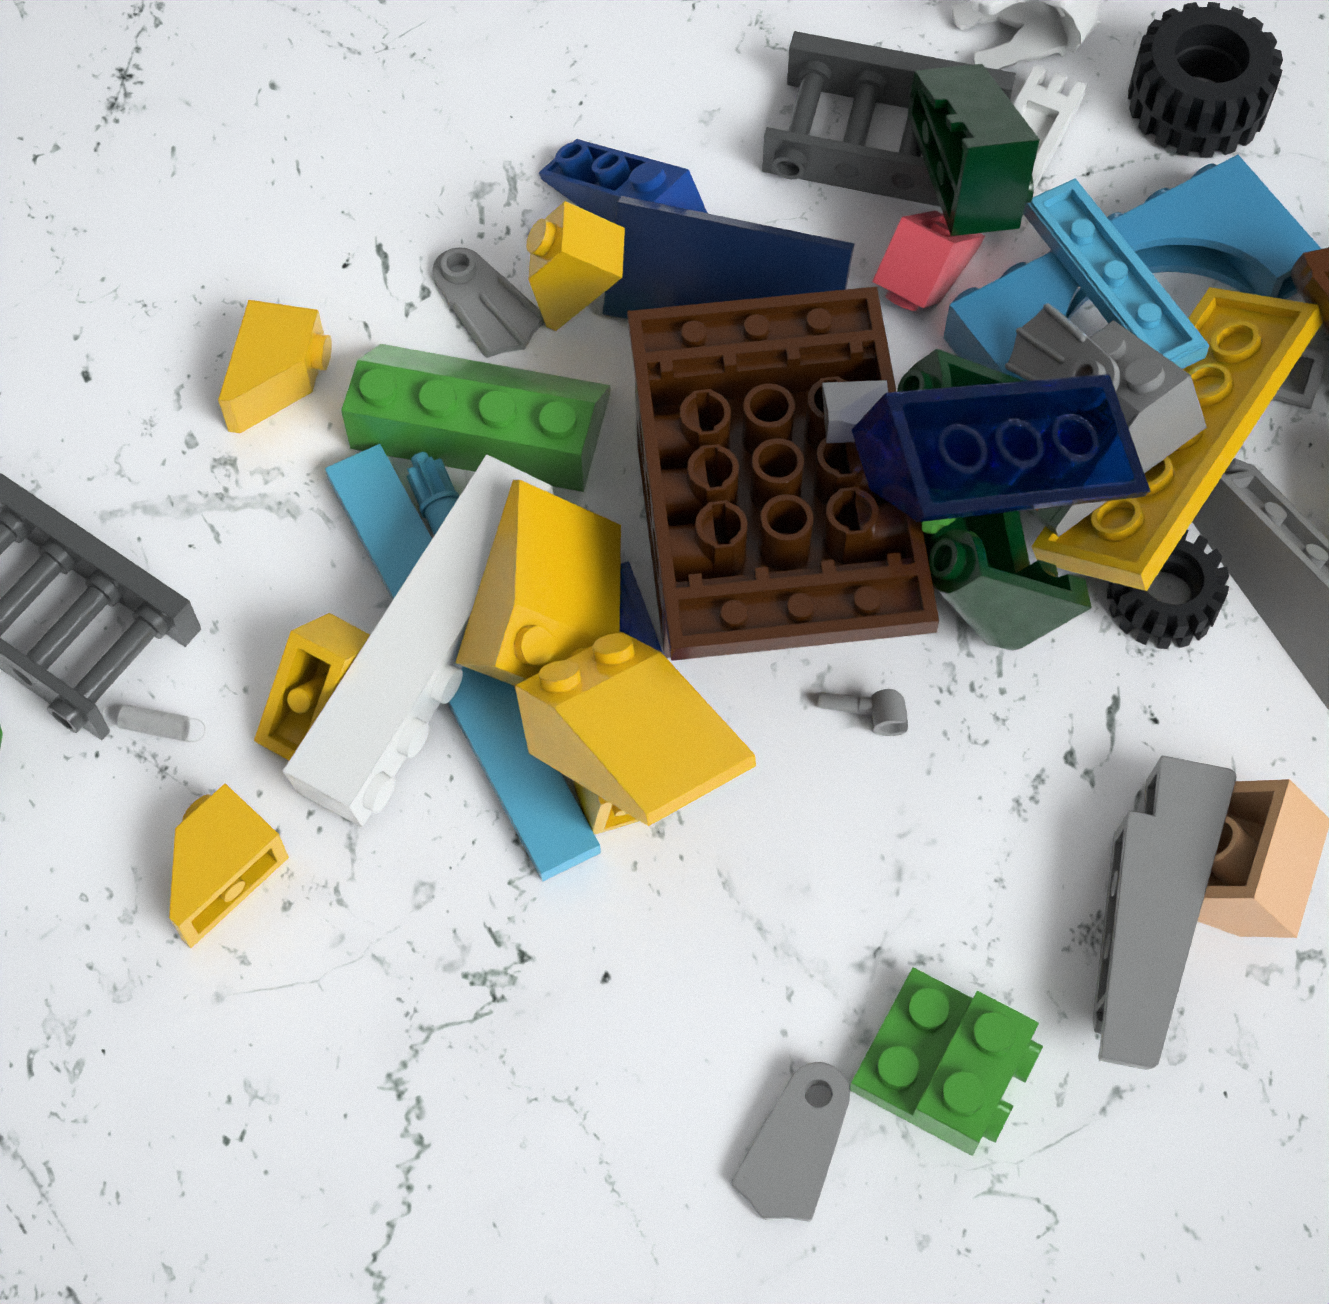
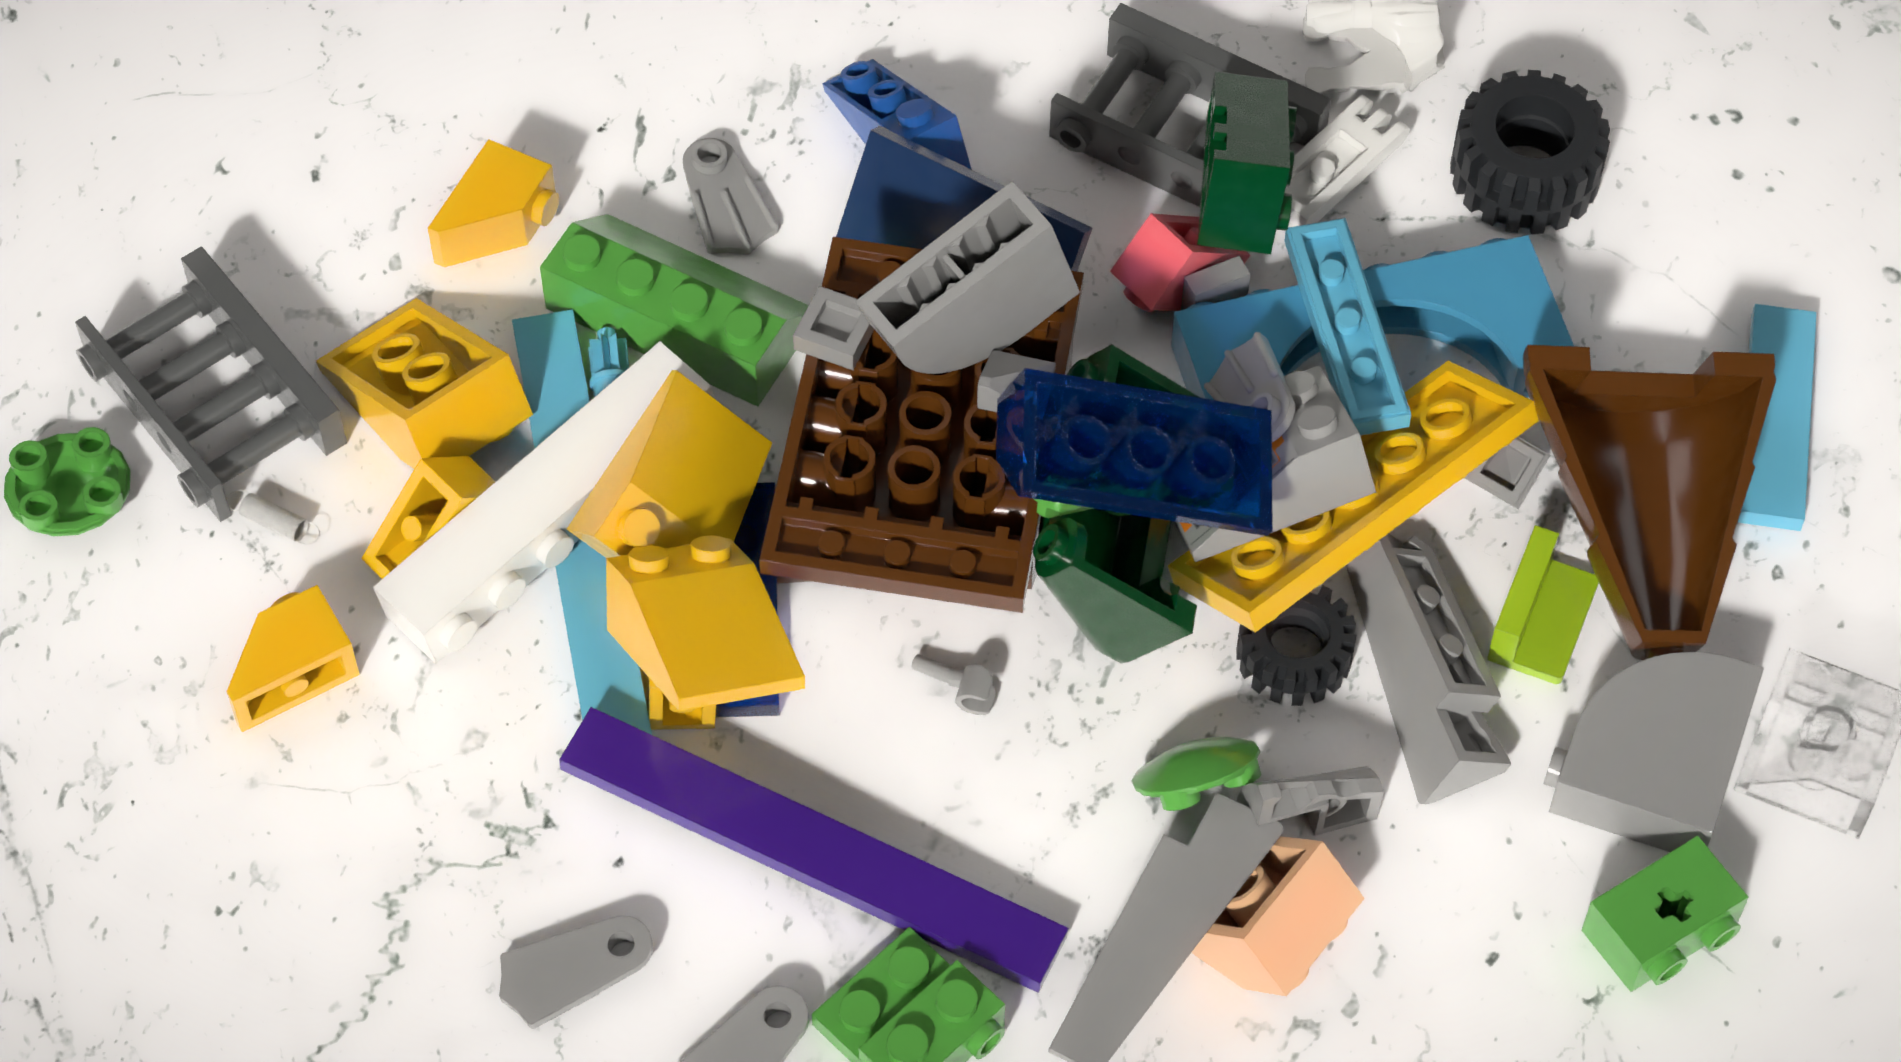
camera: 15 degrees right, 5 degrees down
(265, 553) = (427, 384): none -> yellow slope
(572, 261) = (810, 177): yellow slope -> none
(598, 1102) = (571, 968): none -> light grey piece
(665, 399) = (833, 329): none -> light grey tile
(793, 914) = (814, 849): none -> dark purple tile
(799, 323) = (973, 287): none -> light grey brick
(974, 269) = (1216, 283): none -> light grey tile
(1130, 737) = (1197, 766): none -> bright green dish
(1248, 733) = (1328, 798): none -> light grey slope

